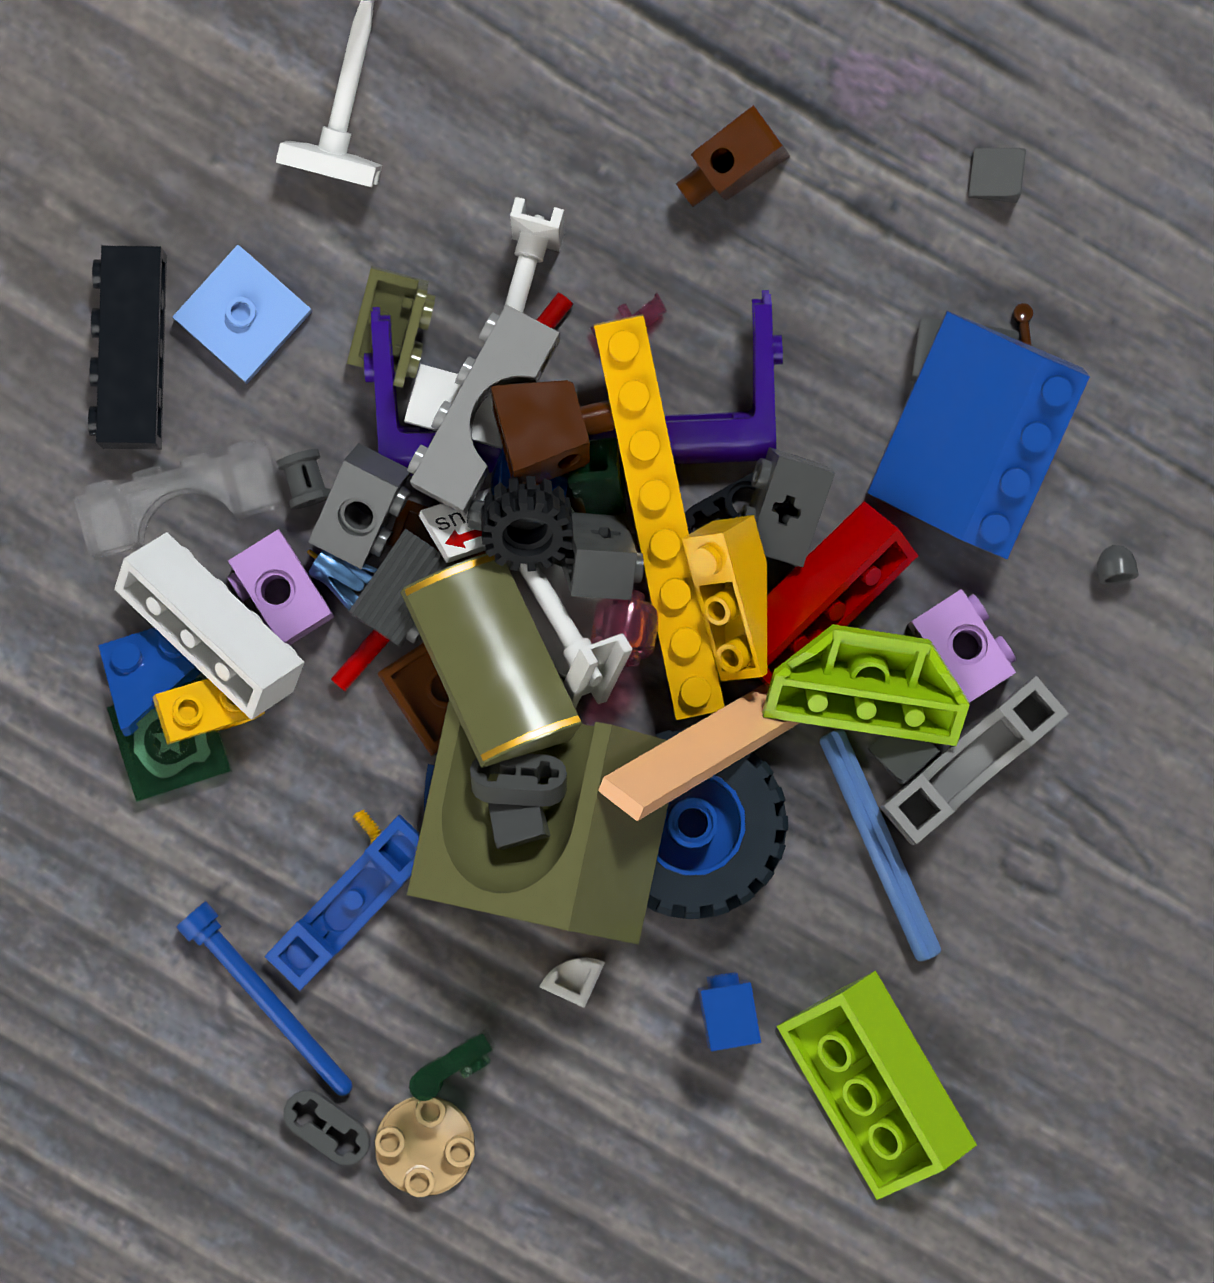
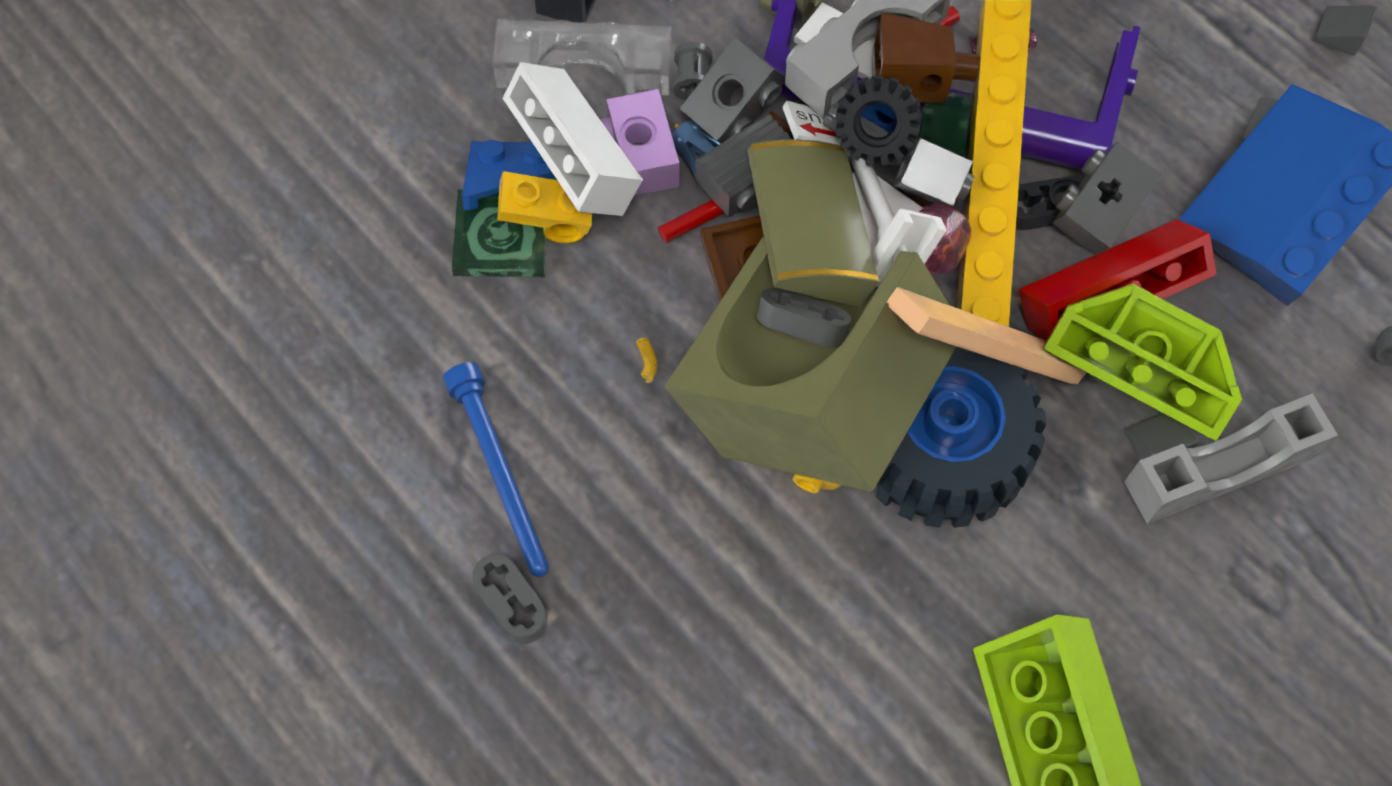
camera: 20 degrees right, 20 degrees down
(347, 905) = (603, 411): blue slope -> none
(424, 1146) = (596, 645): tan dish -> none
(465, 1058) = (666, 564): clear green plate -> none
(517, 824) = (788, 357): dark grey slope -> none
(574, 979) = (790, 542): white tile -> none
(728, 1012) = (935, 606): blue brick -> none
(732, 593) = (1043, 236): yellow slope -> none
(880, 845) = (1118, 518): medium blue axle -> none
(966, 615) = (1247, 342): lavender brick -> none

